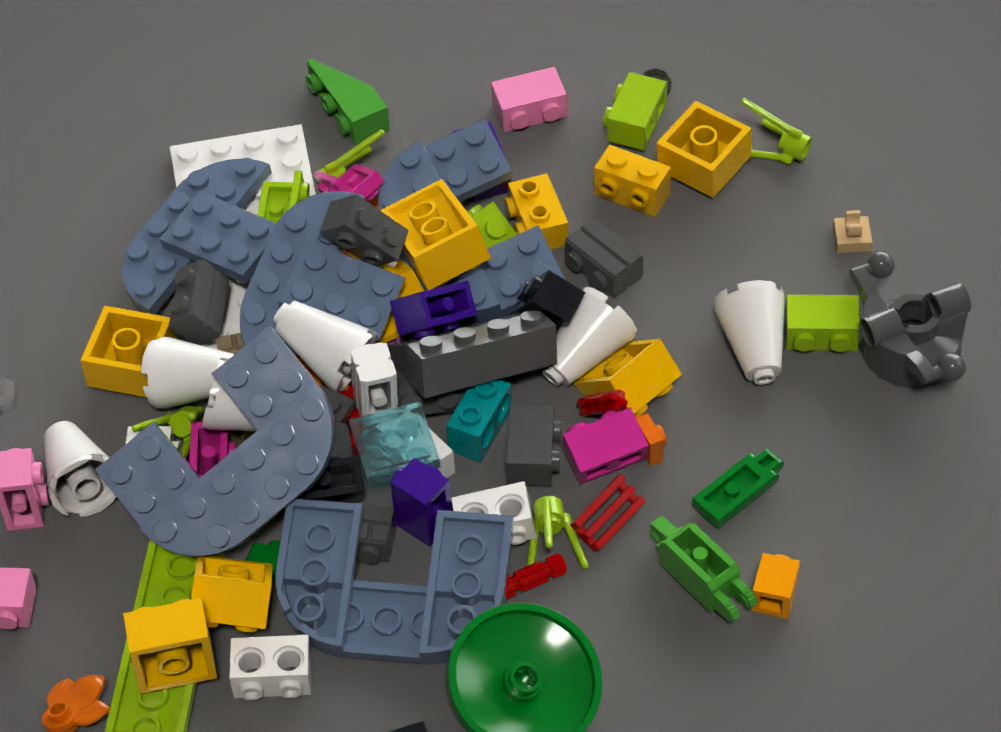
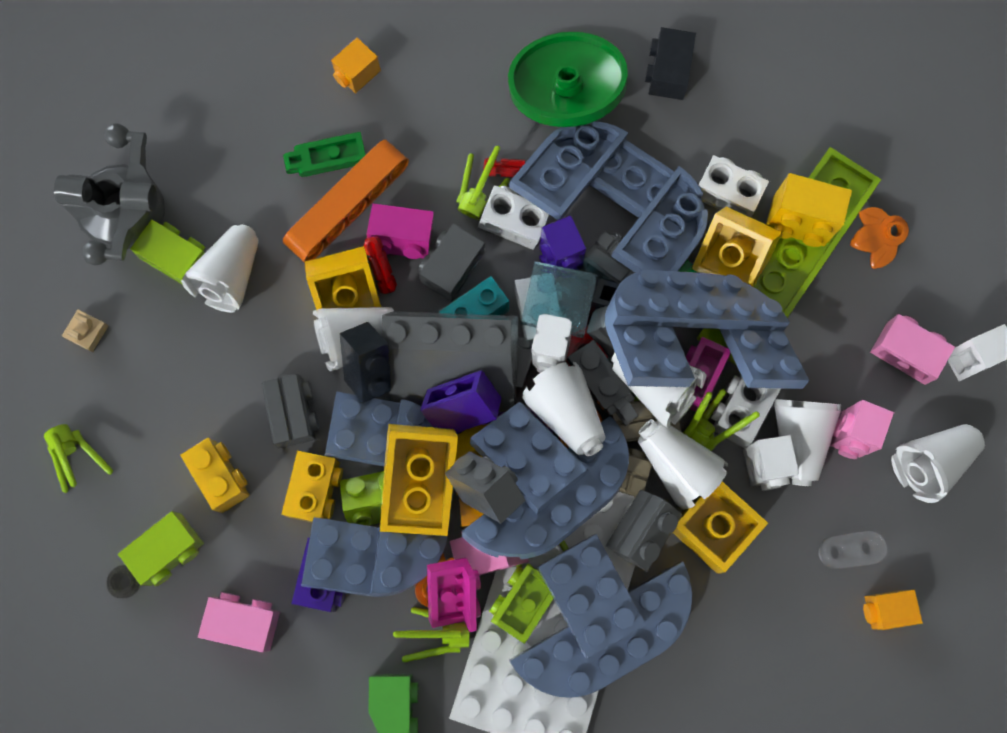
camera: 155 degrees left, 25 degrees up
(100, 415) = (771, 462): none -> white brick
(627, 493) = (430, 184): red tile -> none
(655, 438) = (360, 222): orange plate -> none
(684, 451) = (345, 201): none -> orange beam
(701, 567) = (398, 100): bright green hinge -> none
(705, 148) = (136, 469): yellow brick -> none

